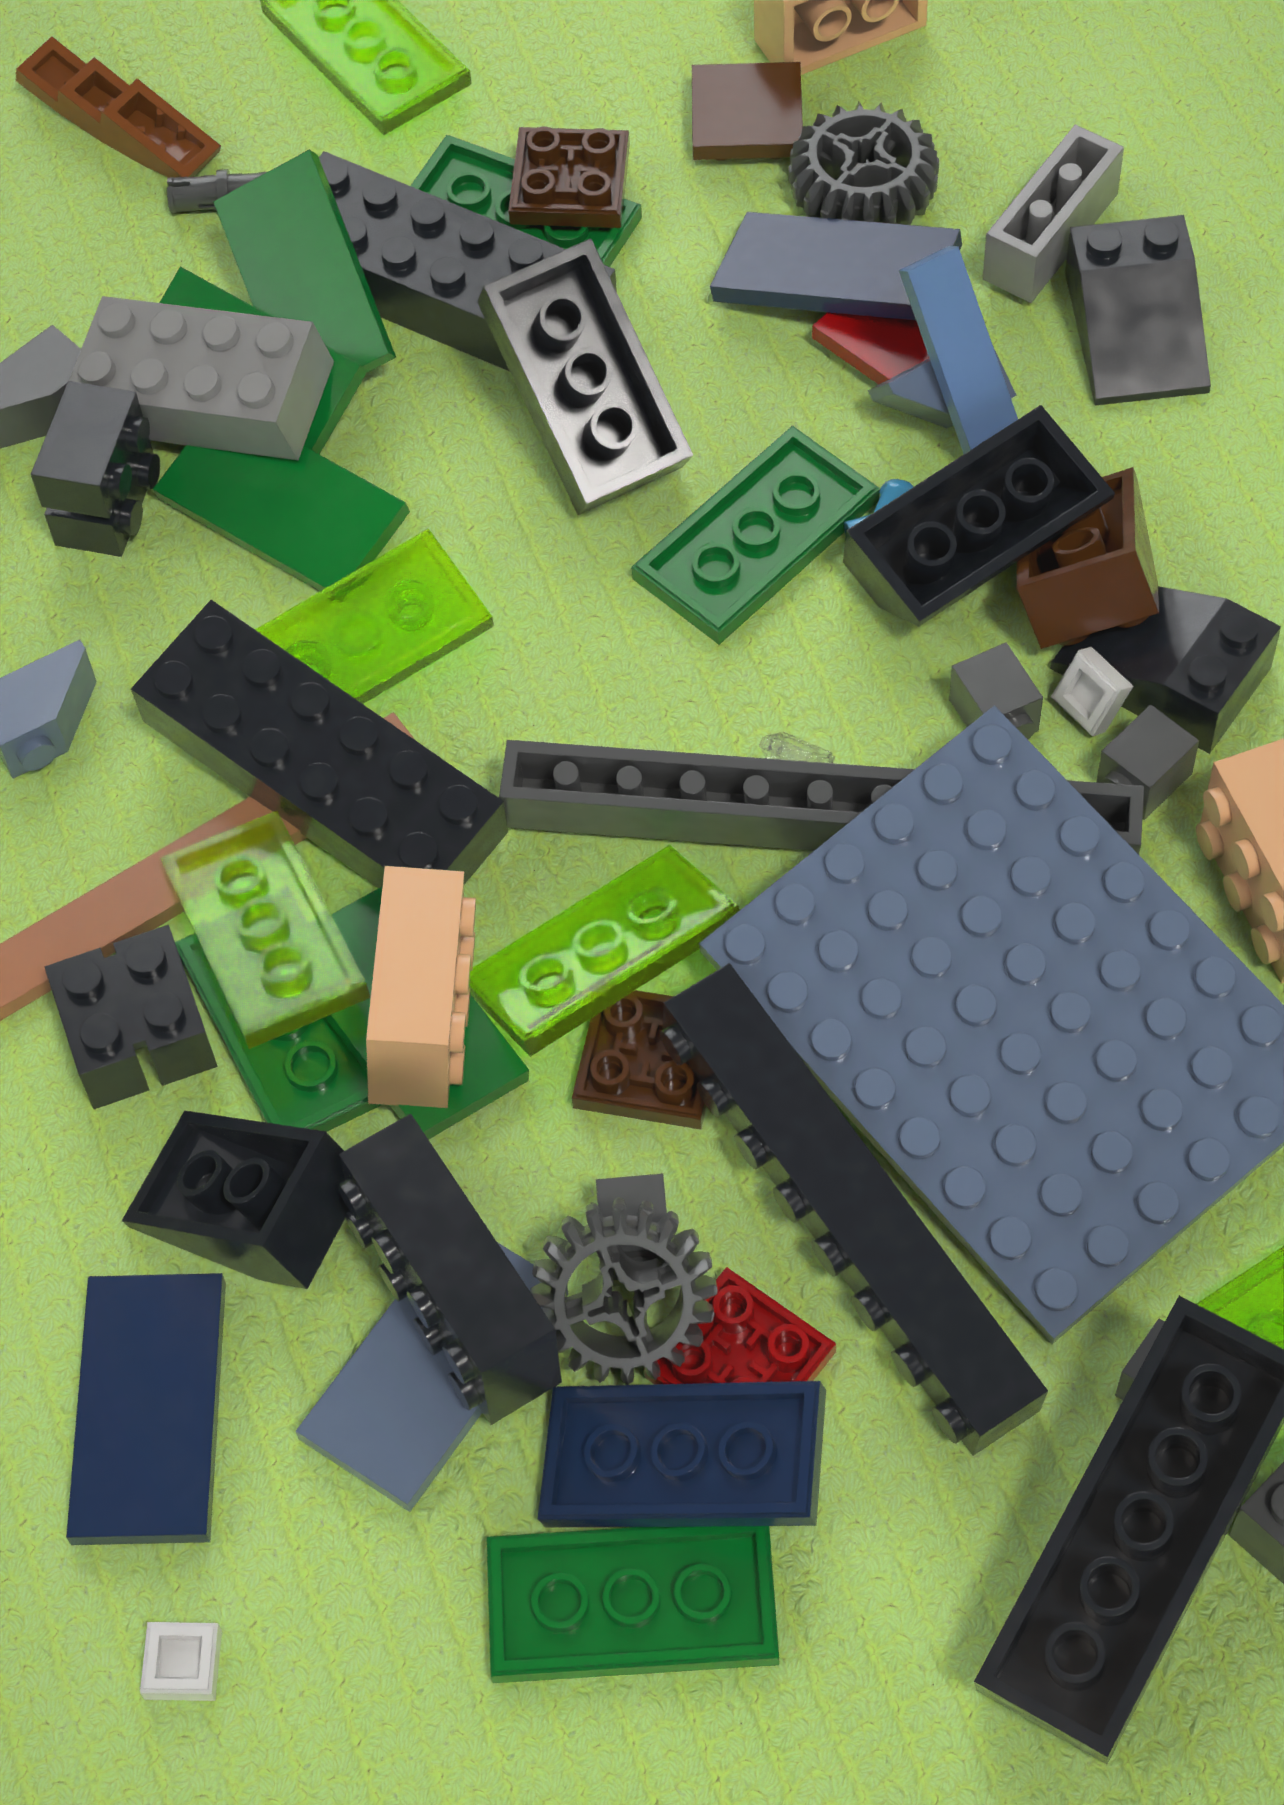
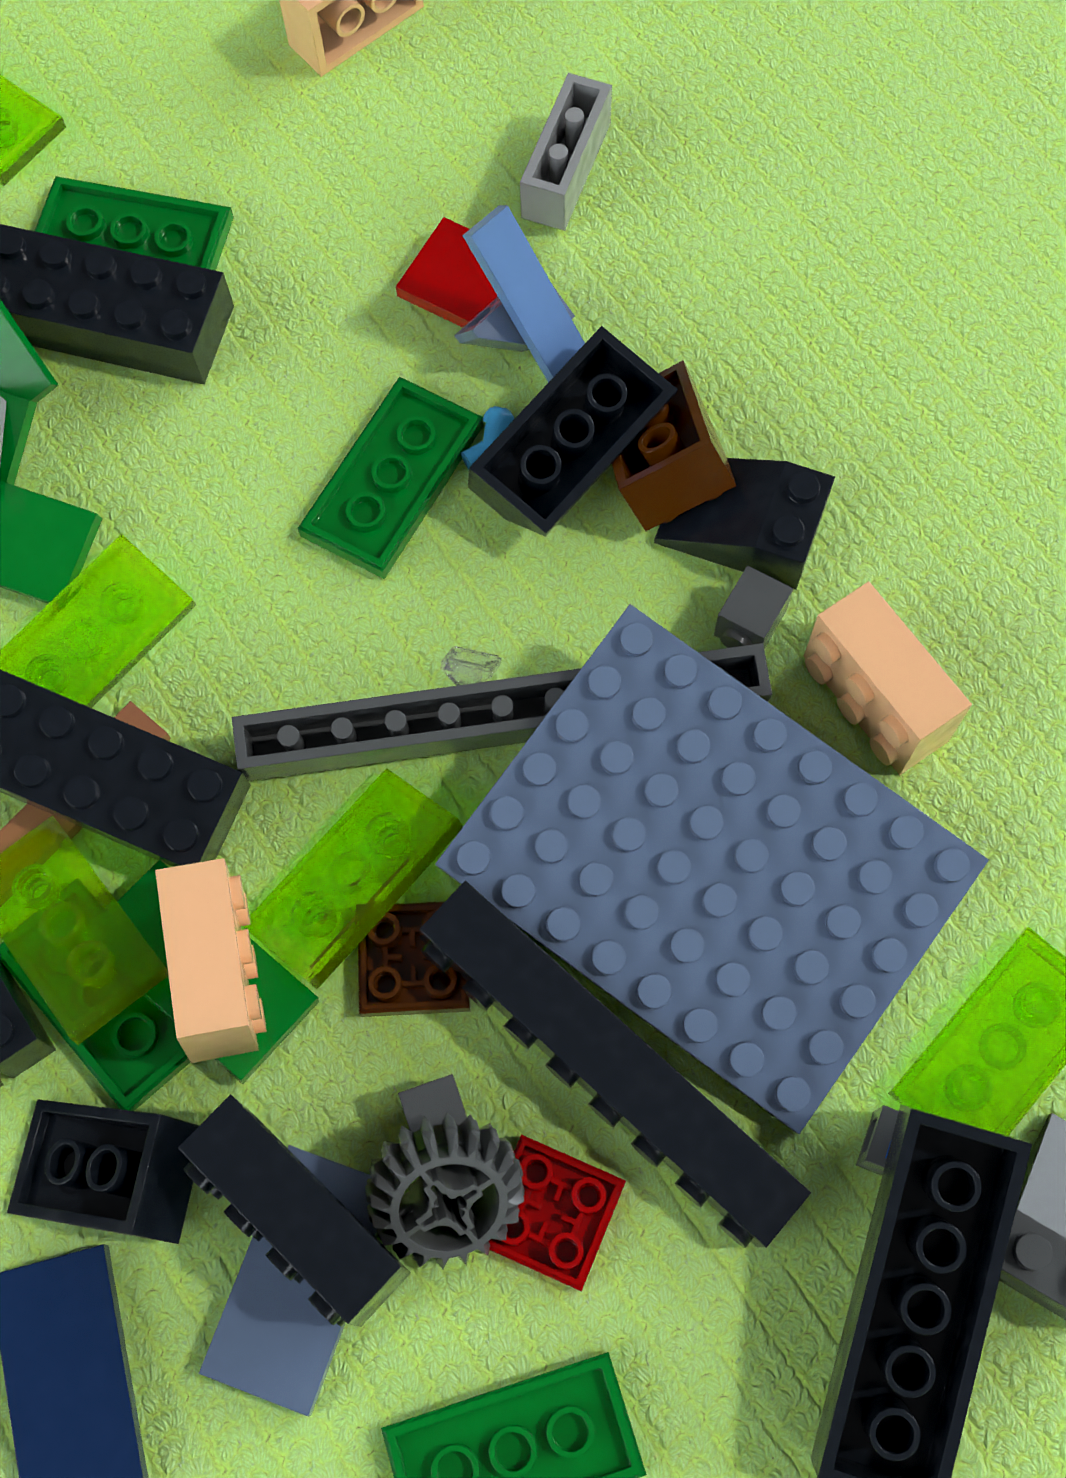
camera: 15 degrees left, 10 degrees up
(569, 177) = (166, 195): reddish brown tile -> none
(584, 376) = (219, 373): brick -> none
(683, 1455) = (528, 1320): dark blue tile -> none
(746, 110) = (298, 108): tile -> none
(825, 264) = (397, 230): tile -> none
(864, 167) = (416, 141): dark grey gear -> none
(996, 680) = (619, 578): dark grey brick -> none
(1092, 691) = (694, 559): white tile -> none
(1138, 309) = (651, 220): black slope -> none

